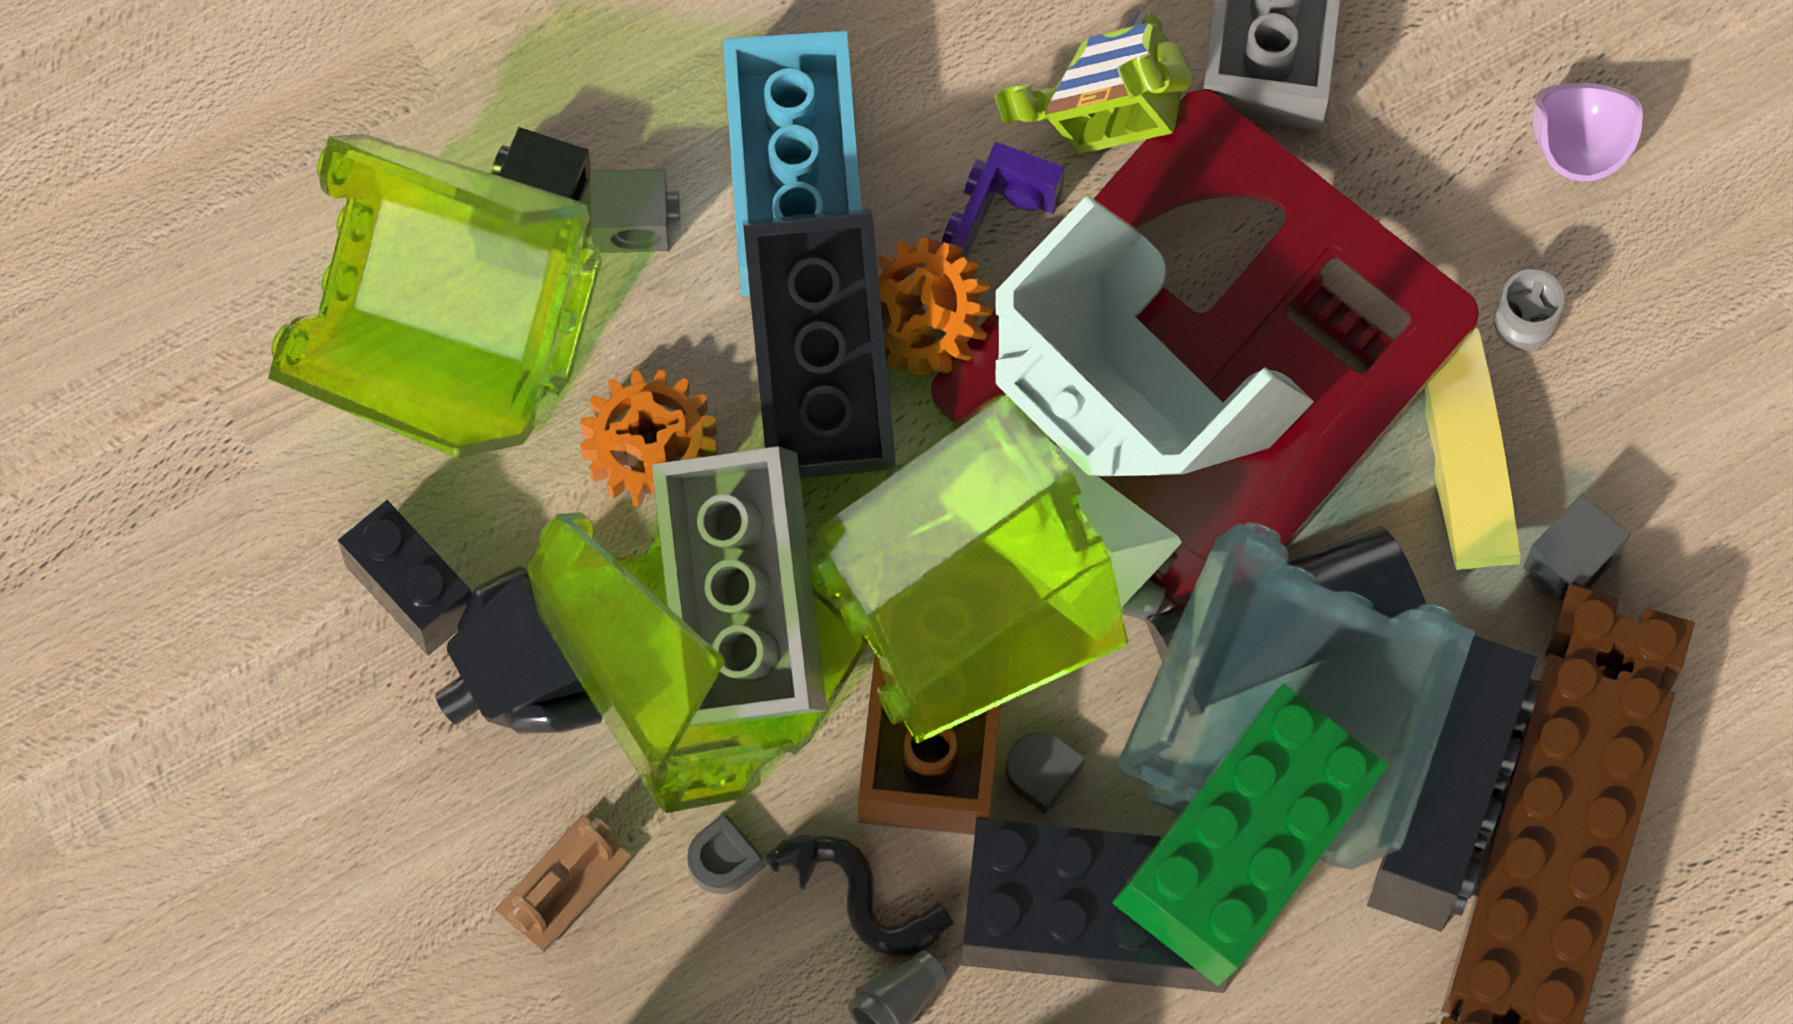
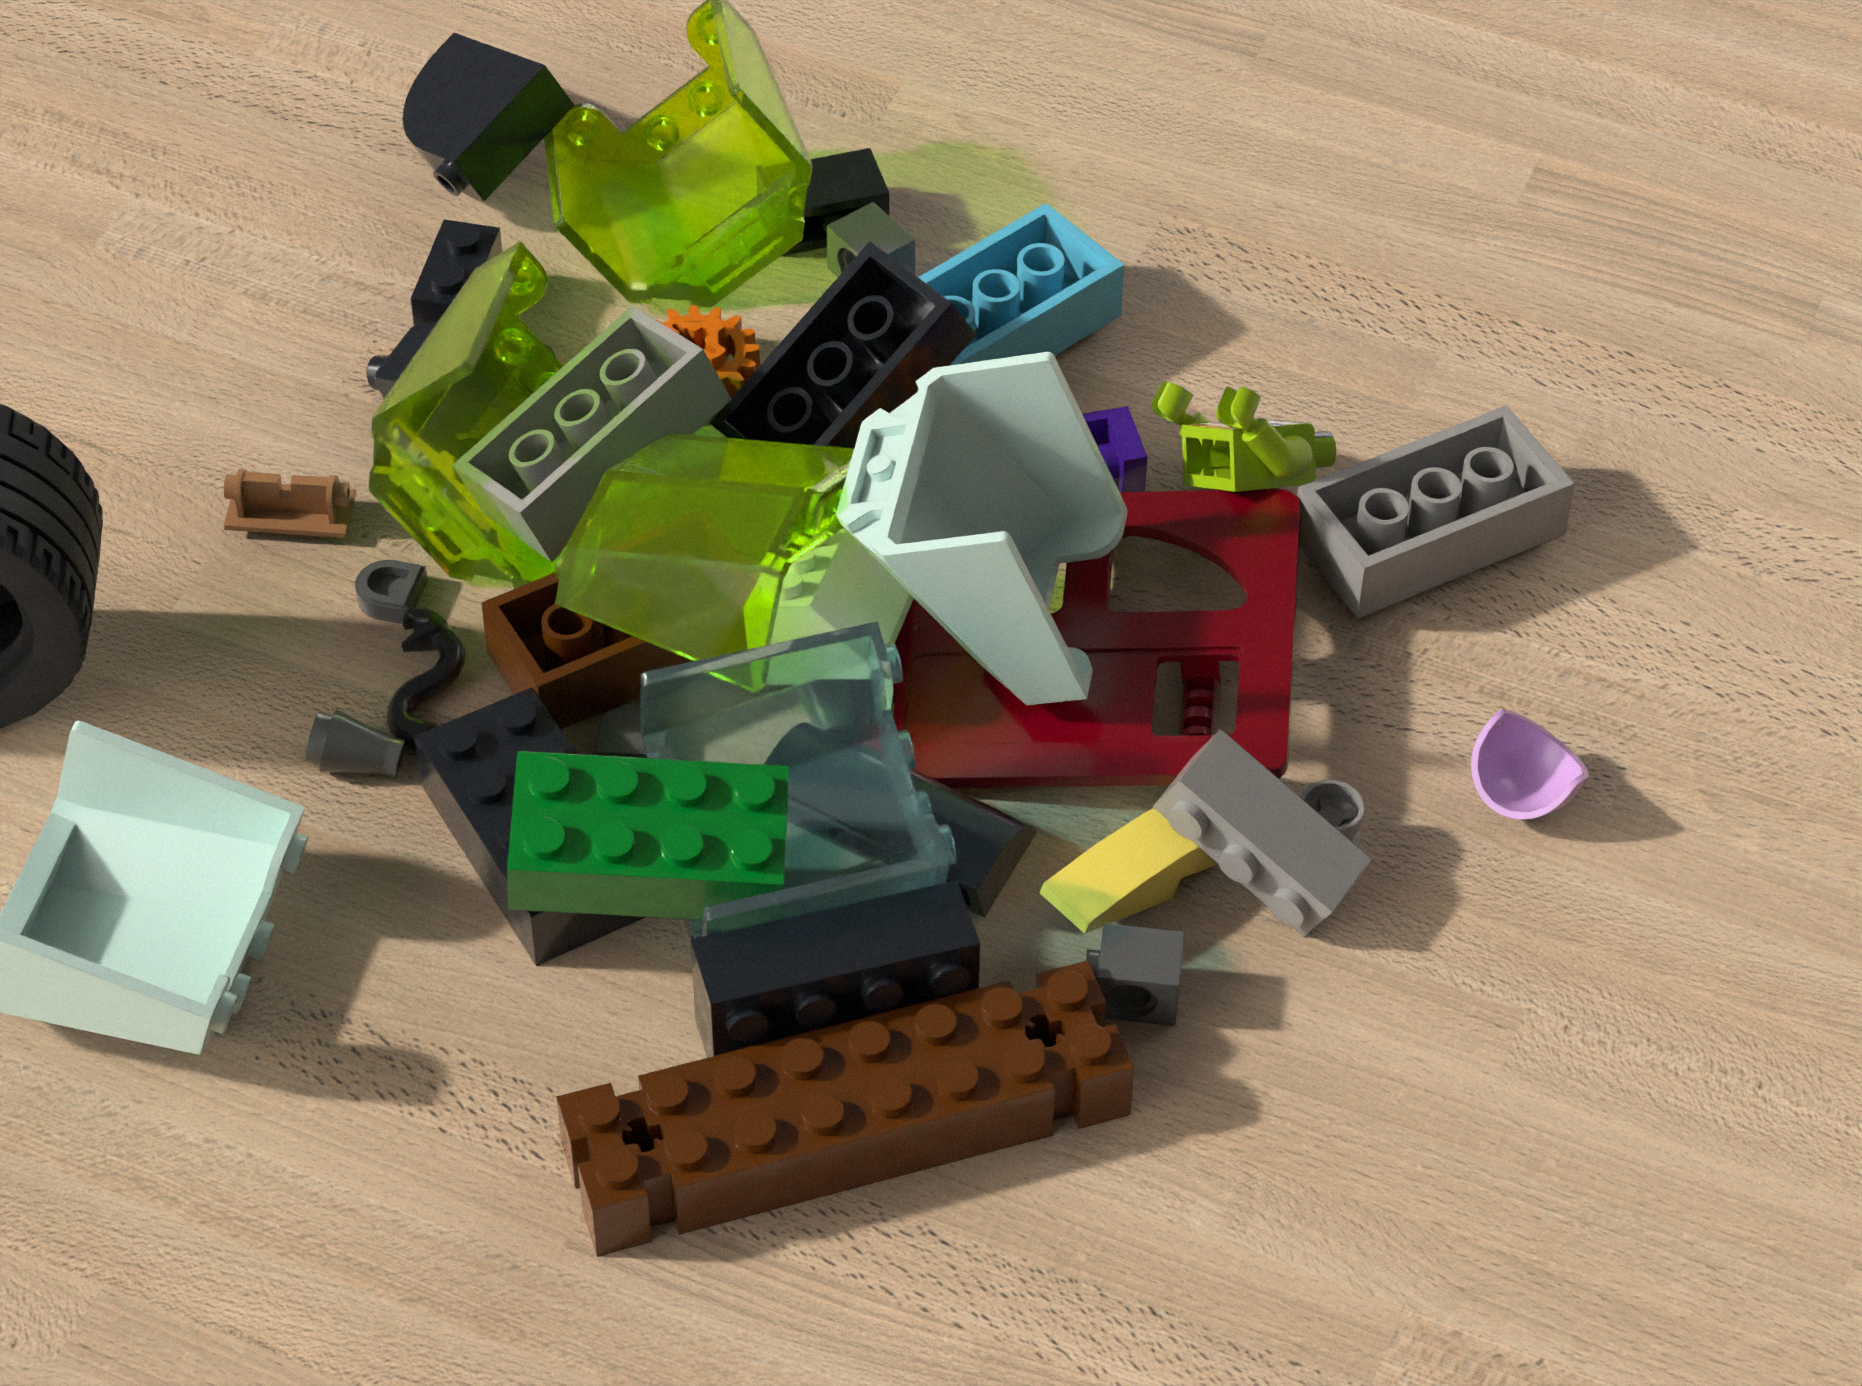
camera: 55 degrees right, 20 degrees down
(206, 423) = (480, 113): none -> black brick
(1528, 370) = (1262, 833): none -> light grey brick

